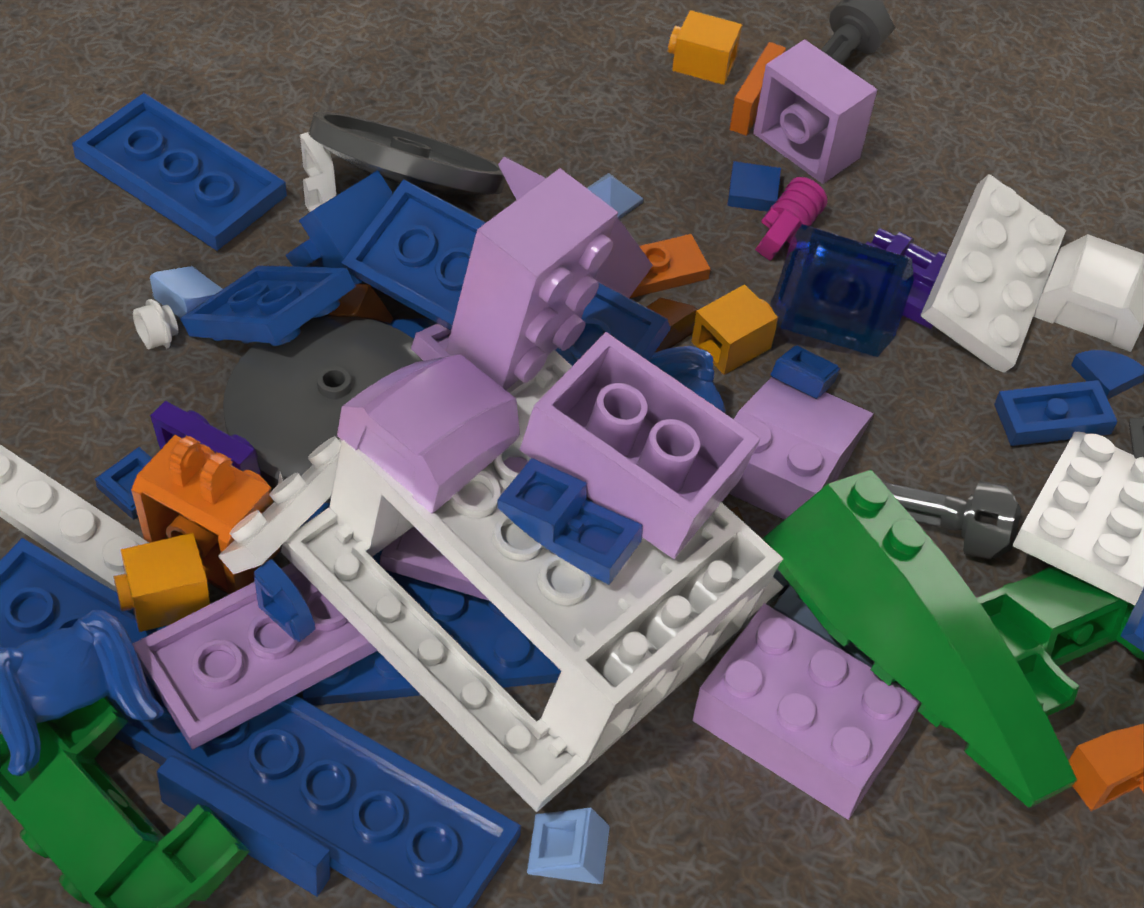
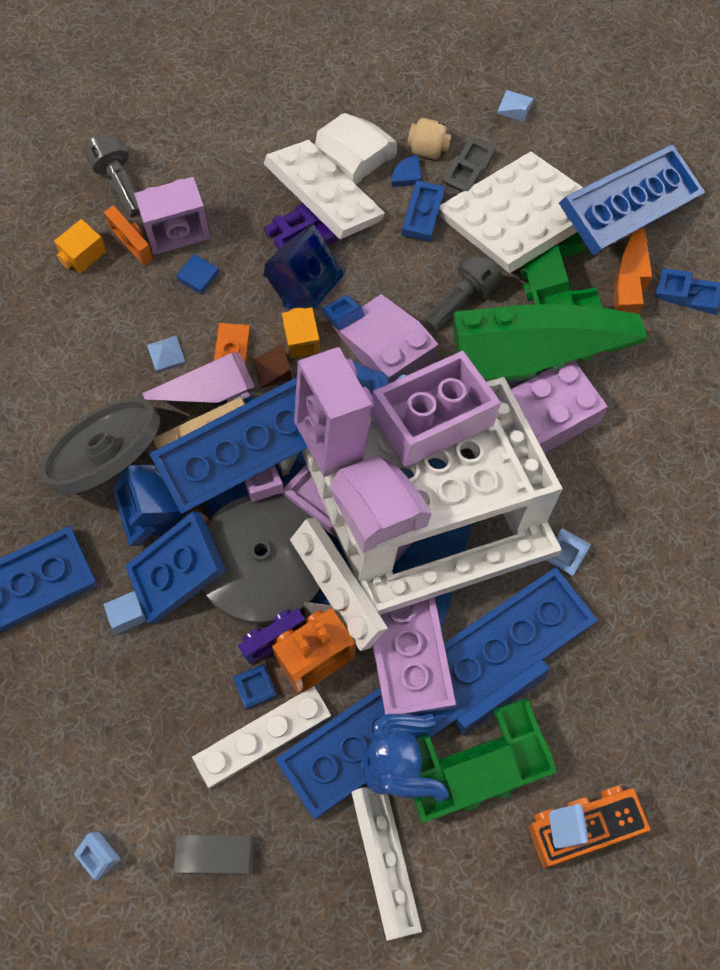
camera: 60 degrees left, 15 degrees up
(155, 324) = (144, 635): white plate -> none
(162, 581) = (350, 688): light orange brick -> none
(282, 601) = (401, 628): blue tile -> none
(320, 169) = (87, 508): white slope -> none
(558, 516) = (458, 463): blue slope -> none
(796, 206) = (234, 267): dark pink hinge -> none

